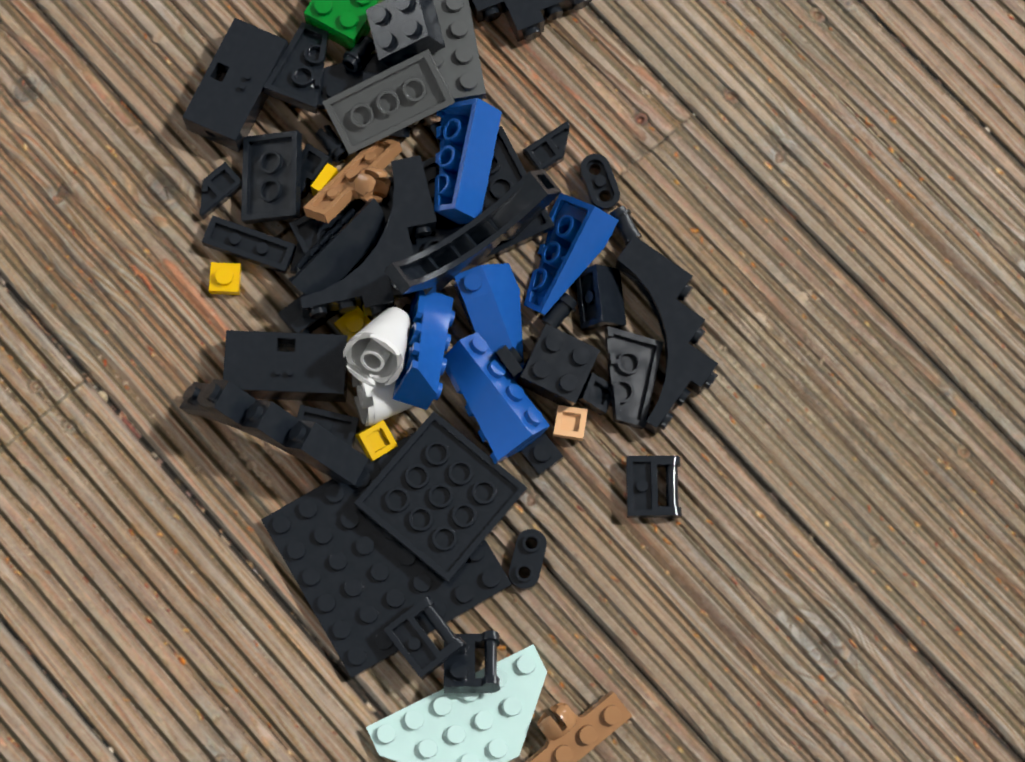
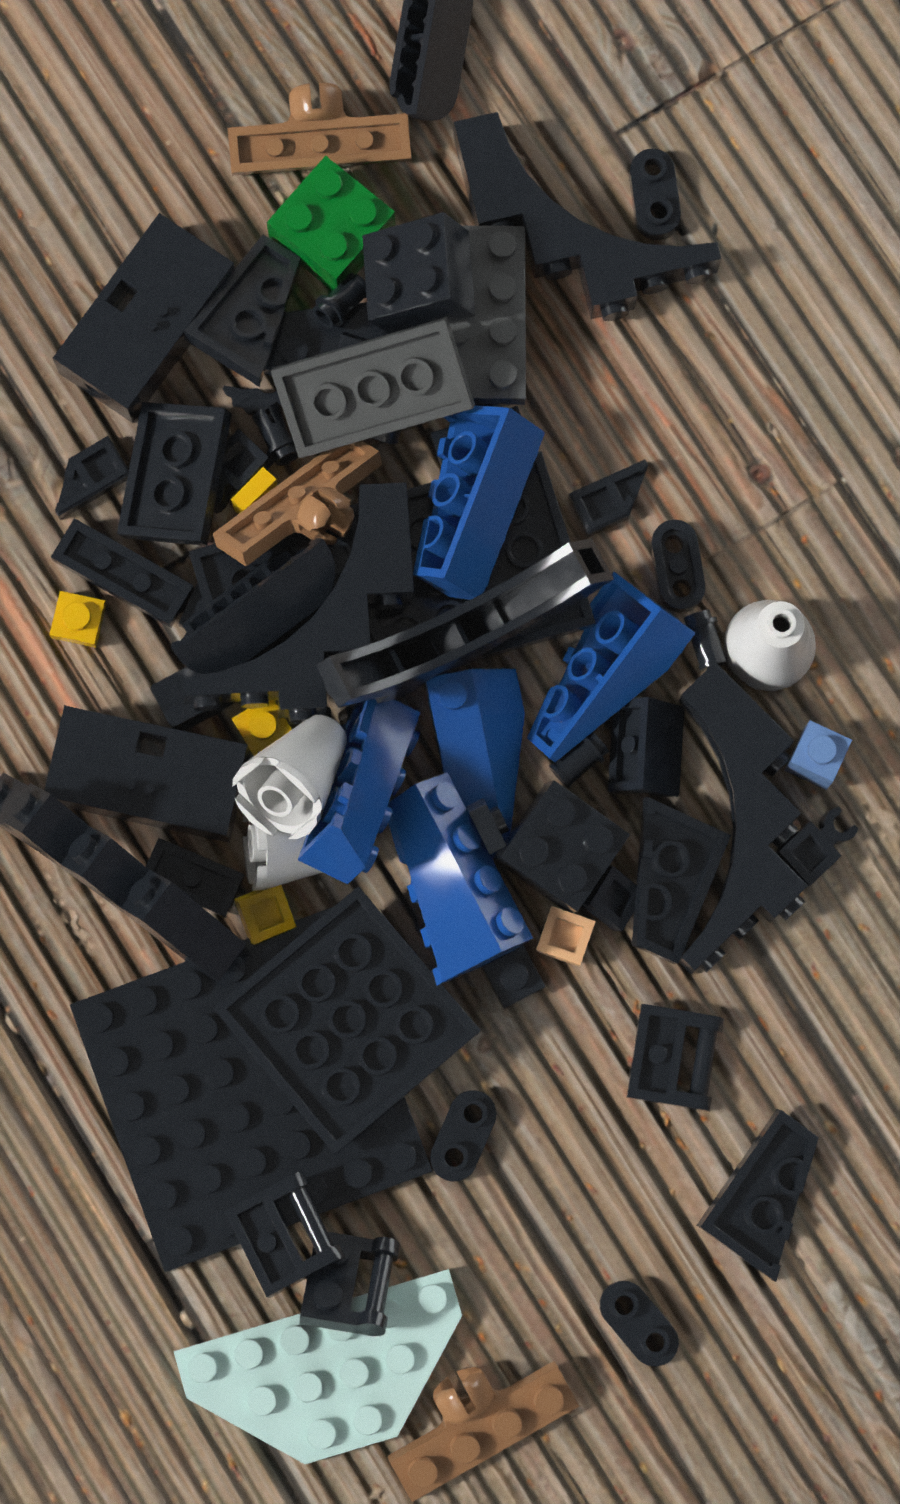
camera: 10 degrees right, 5 degrees up
(312, 125) = (251, 399): none -> black piece
(658, 660) = (638, 1323): none -> black plate
(666, 220) = (769, 645): none -> white cone
(709, 283) = (818, 755): none -> medium blue brick
(717, 342) = (812, 850): none -> black plate
(723, 565) = (761, 1195): none -> black wing

